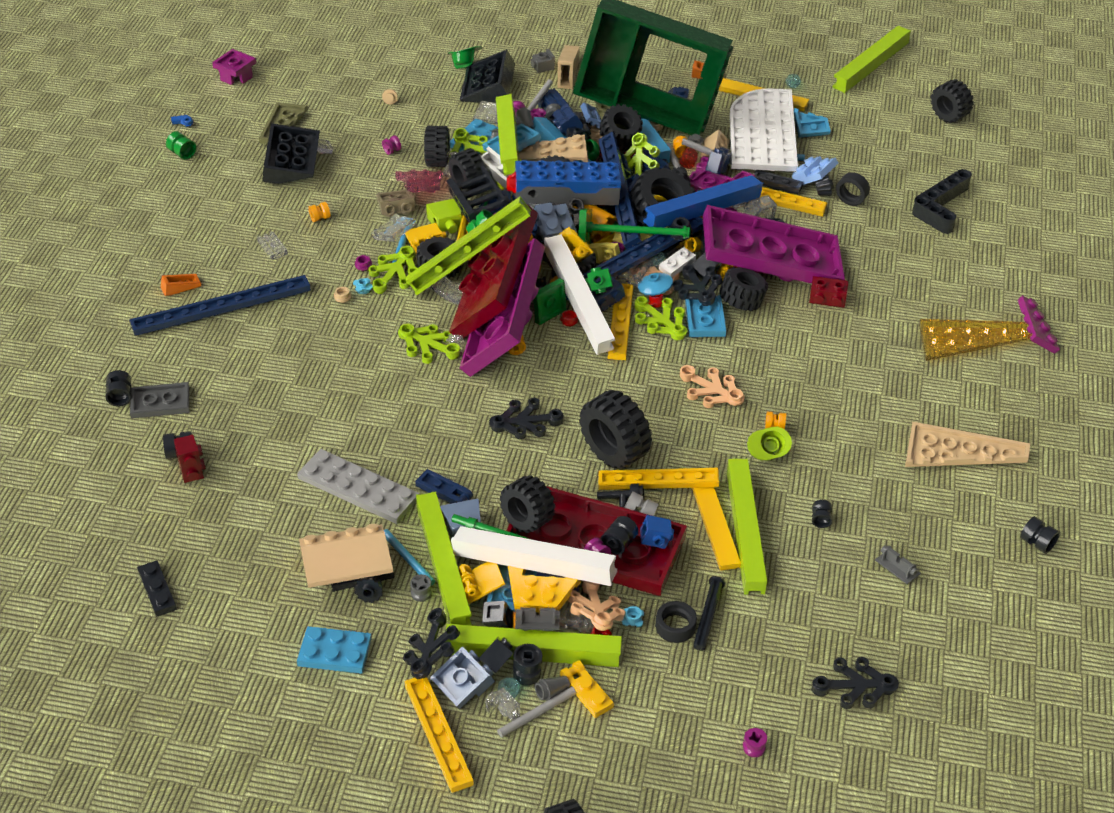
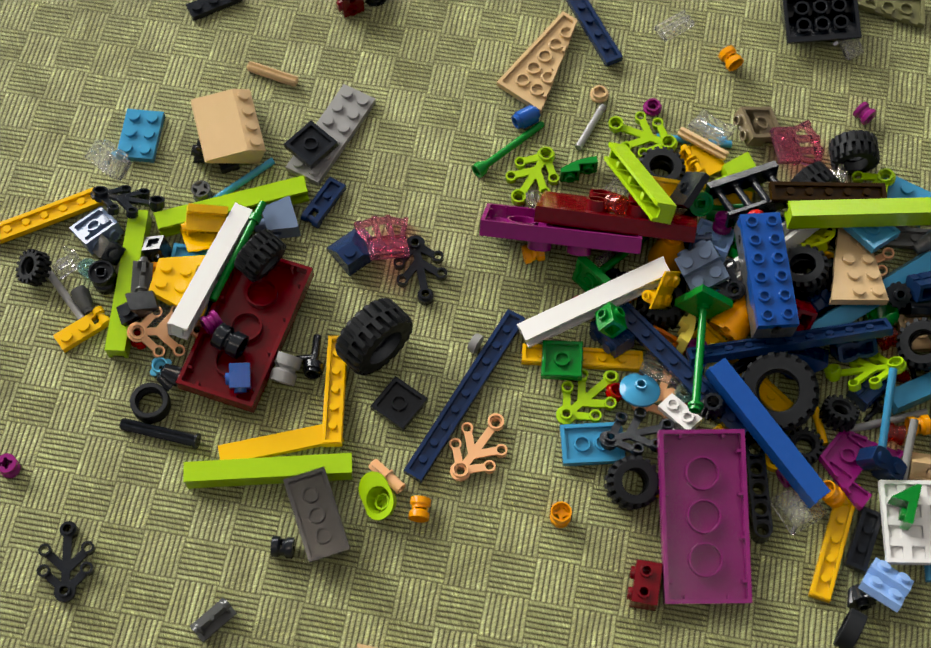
camera: 90 degrees right, 20 degrees up
(270, 533) = (272, 73): none -> tan axle
(301, 332) = (538, 66): none -> tan wing
(363, 285) = (619, 106): medium azure plate -> none
(363, 340) = (525, 117): none -> blue brick
(370, 668) = (108, 159): none -> clear brick
(378, 489) = (311, 144): none -> black plate
(394, 310) = (590, 127): none -> light grey bar
(411, 231) = (703, 143): none -> tan axle
(417, 375) = (481, 168): none -> green piece
(427, 309) = (582, 166): none -> green slope
(465, 568) = (205, 217): none -> yellow panel
(472, 216) = (689, 189): none -> black plate
(488, 149) = (796, 191): none -> dark brown plate
(491, 439) = (385, 246): none -> clear pink plate
(498, 249) = (616, 203): none -> clear red wheel
(503, 468) = (350, 252): none -> dark blue slope
(526, 729) = (33, 267): none -> black tyre
(576, 618) = (137, 306): none -> black slope
(609, 381) = (475, 343): none -> light grey tile
(628, 325) = (562, 360): none -> green tile
(650, 598) = (168, 376): none -> black piece
(661, 391) = (463, 397): none -> dark blue plate
(672, 434) = (399, 403): none -> black plate
(673, 149) = (887, 409): none -> dark azure bar
(740, 447) = (393, 481): none -> light nougat axle
(754, 145) = (908, 502): none -> green slope
(772, 335) = (561, 510): none -> light orange wheel
(792, 480) = (316, 514): none -> black brick

